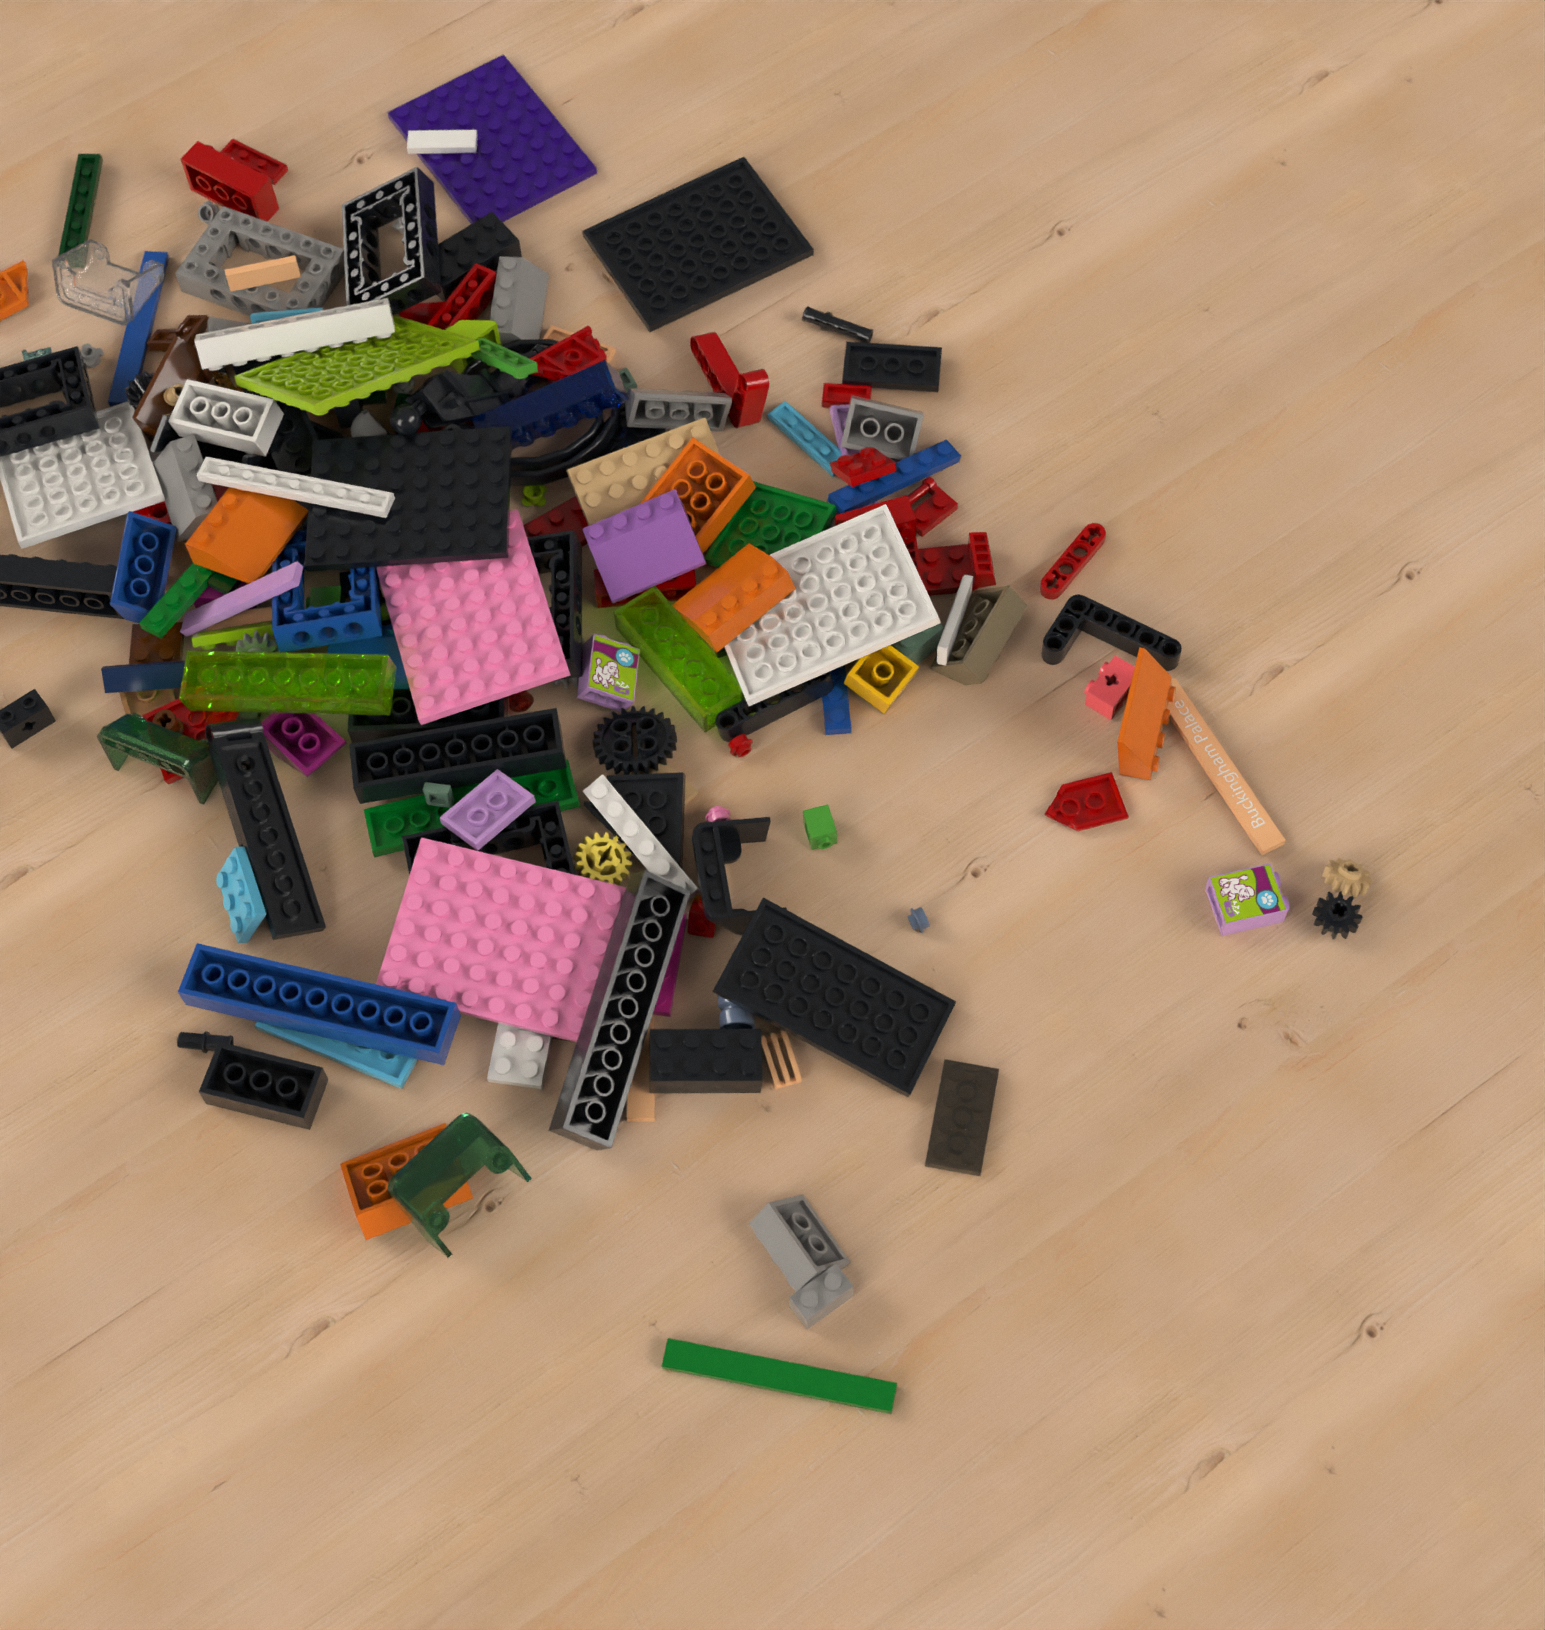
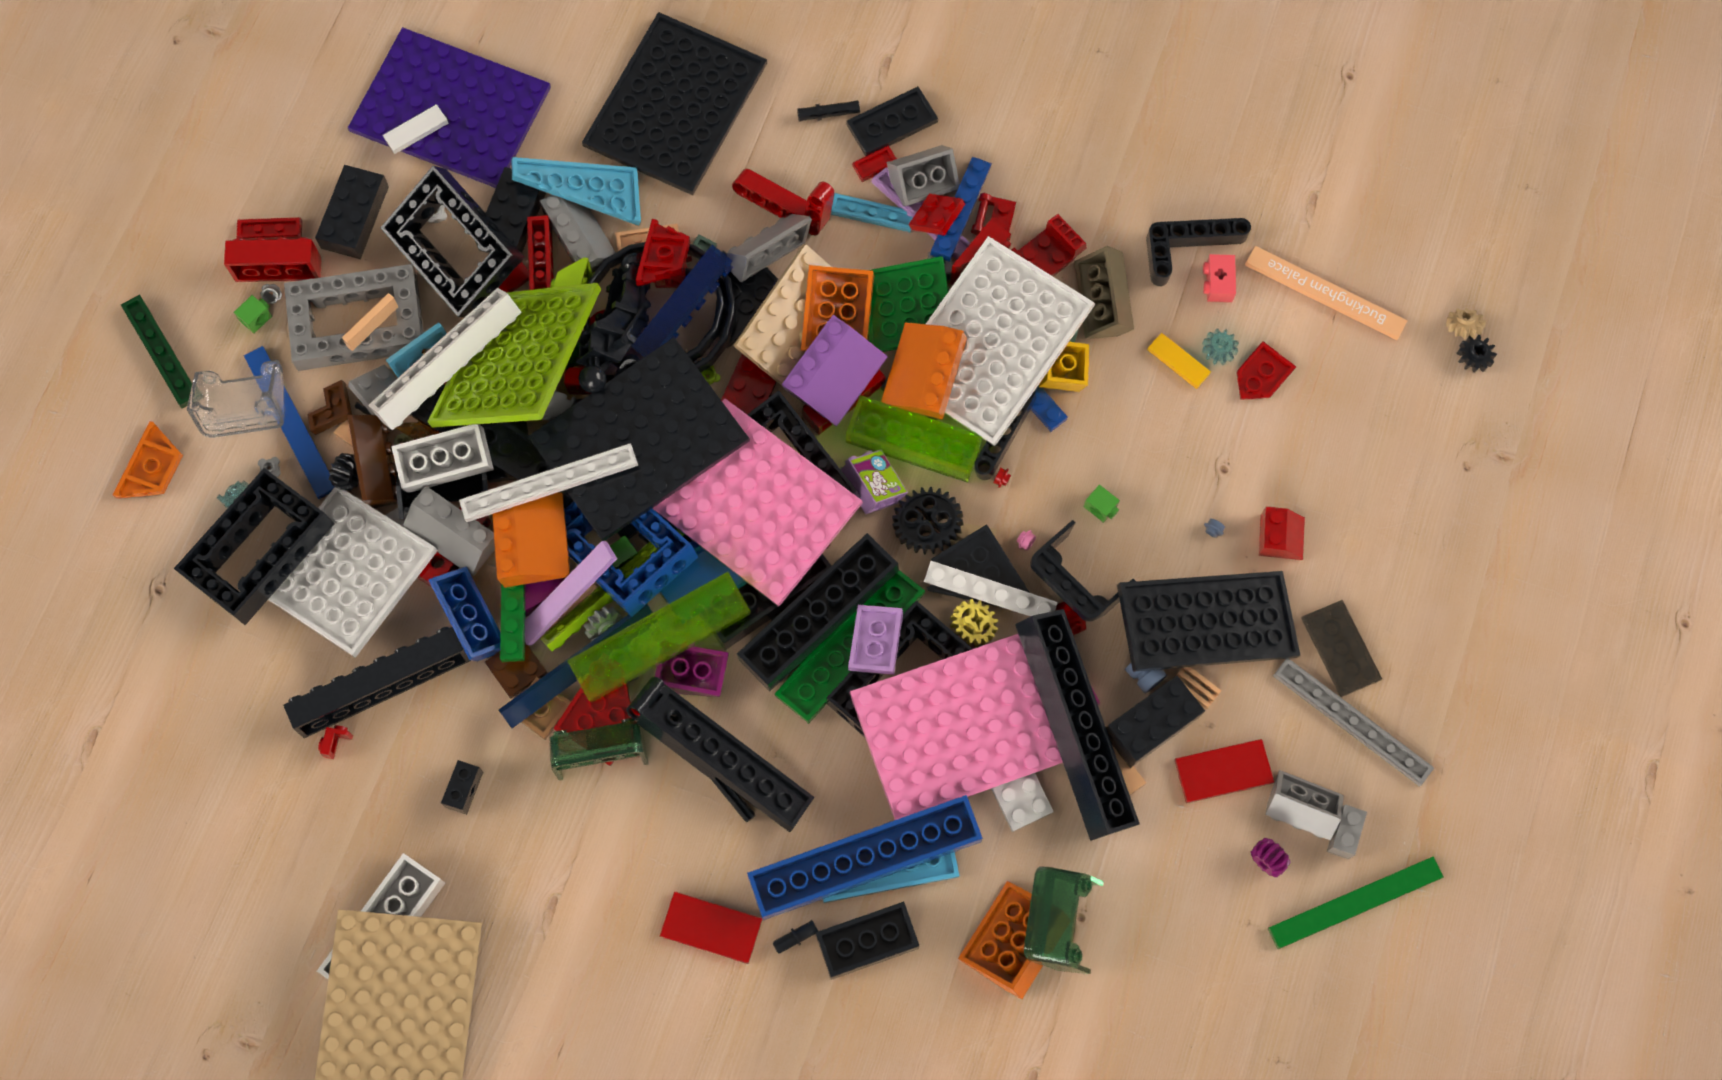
camera: 40 degrees left, 10 degrees up
(137, 984) = (711, 927): none -> red tile
(168, 720) = (579, 720): reddish brown bush -> none
(172, 394) = (382, 463): tan pin -> none
(180, 221) = (253, 313): none -> bright green brick
(223, 583) = (537, 589): dark green tile -> none
(241, 895) = (740, 814): medium azure plate -> none
(331, 181) = (352, 212): none -> black brick
(438, 794) = (825, 649): sand green tile -> none
(504, 359) = (624, 284): bright green plate -> none
(560, 272) = (595, 186): none -> medium azure wing
(719, 1267) = (1270, 857): none -> magenta gear
(743, 1158) = (1224, 771): none -> red tile
(918, 1198) = (1353, 722): none -> light grey tile
(954, 620) = (1081, 287): white tile -> none
(984, 966) = (1281, 533): none -> red slope
(1009, 742) = (1179, 360): none -> yellow tile
(1052, 748) = (1212, 349): none -> clear light blue gear
(1070, 559) = (1122, 198): red beam -> none
(1144, 718) = (1263, 290): orange slope -> none
(1247, 899) = (1413, 378): brick -> none

